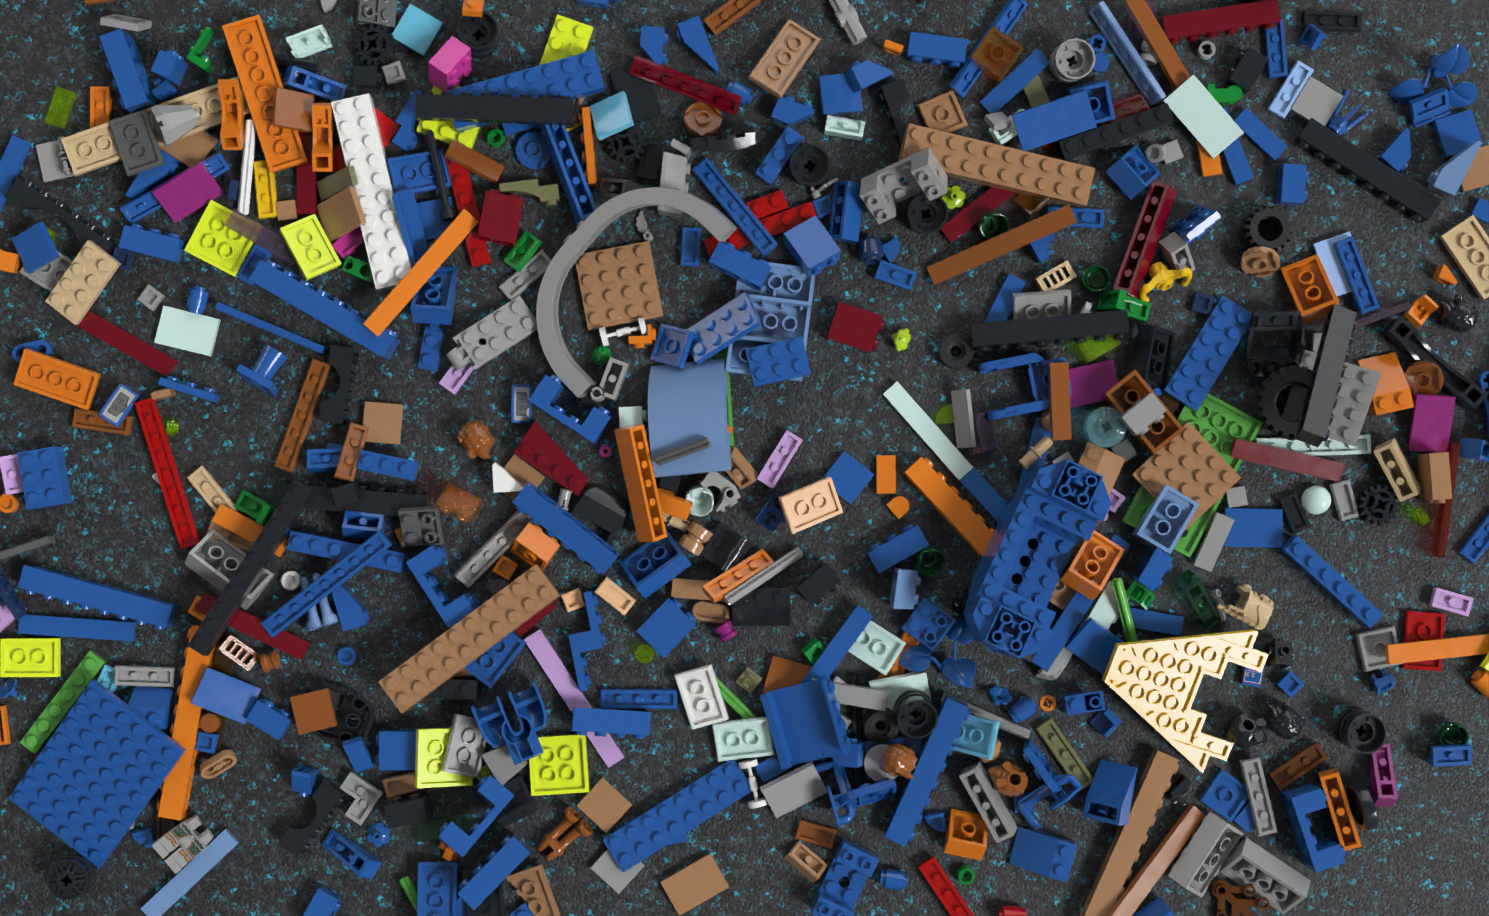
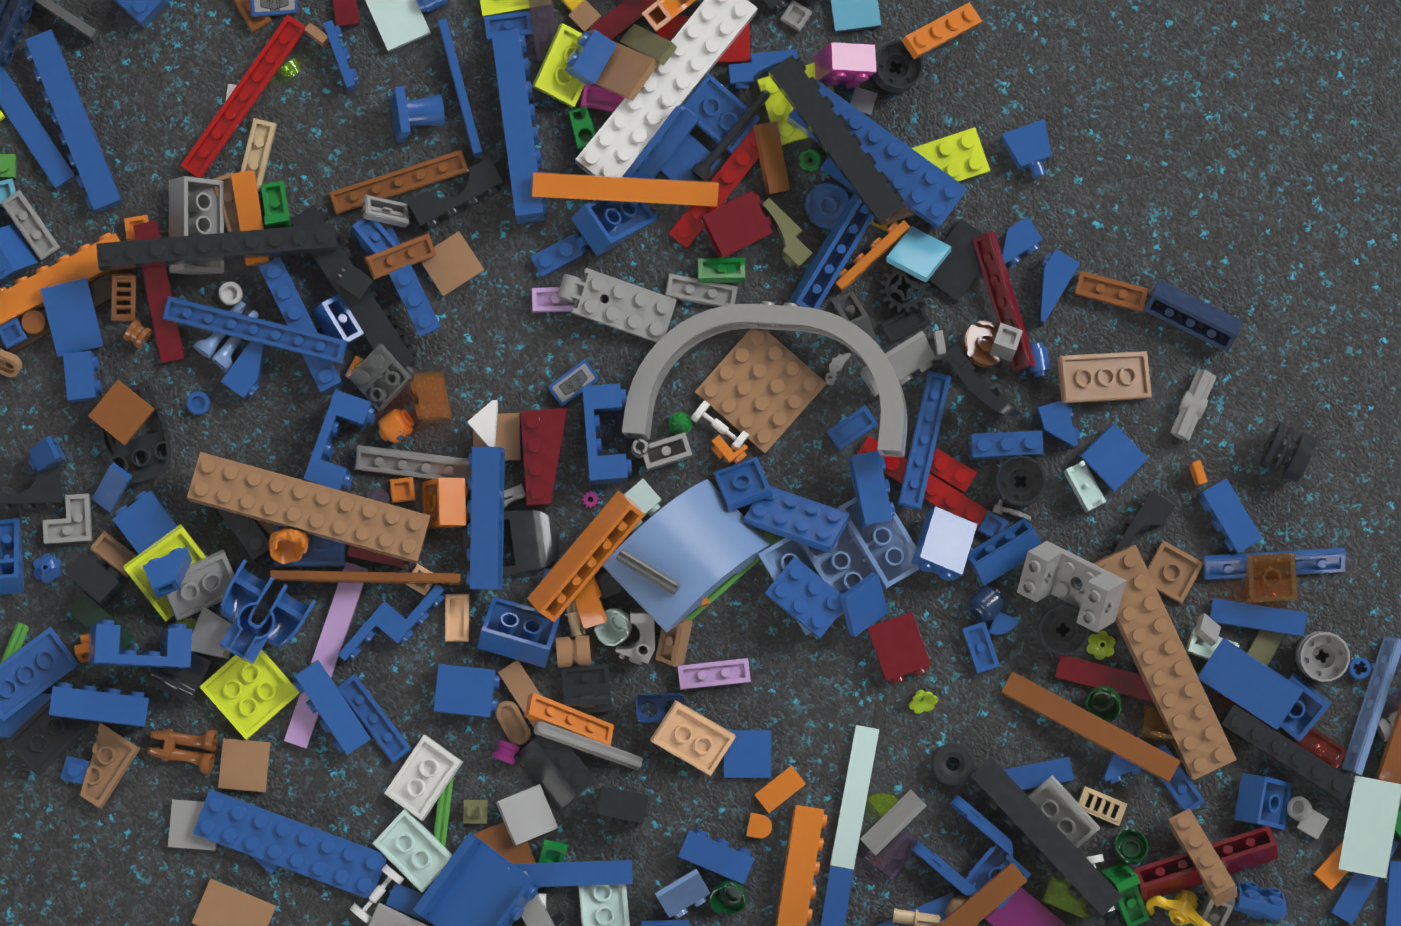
camera: 45 degrees right, 5 degrees down
(316, 227) = (589, 57): none -> blue brick
(316, 441) = (385, 214): none -> light grey tile
(441, 761) = (168, 571): none -> blue slope
(460, 540) = (395, 426): none -> orange head
(476, 439) = (505, 366): dark orange animal -> none
(483, 72) = (863, 100): none -> light grey tile
(484, 670) = (288, 545): none -> orange hair
(544, 635) = (366, 577): none -> dark orange tile
(644, 653) = (423, 689): clear neon green plate -> none
(712, 104) = (1006, 342): none -> light grey panel
(777, 649) = (526, 815): none -> light grey tile
(810, 328) = (863, 604): none -> blue tile
(866, 74) = (1151, 467): blue slope -> none
(1101, 62) = (1344, 685): blue tile -> none
(1131, 236) = (1207, 862): none -> medium nougat arch

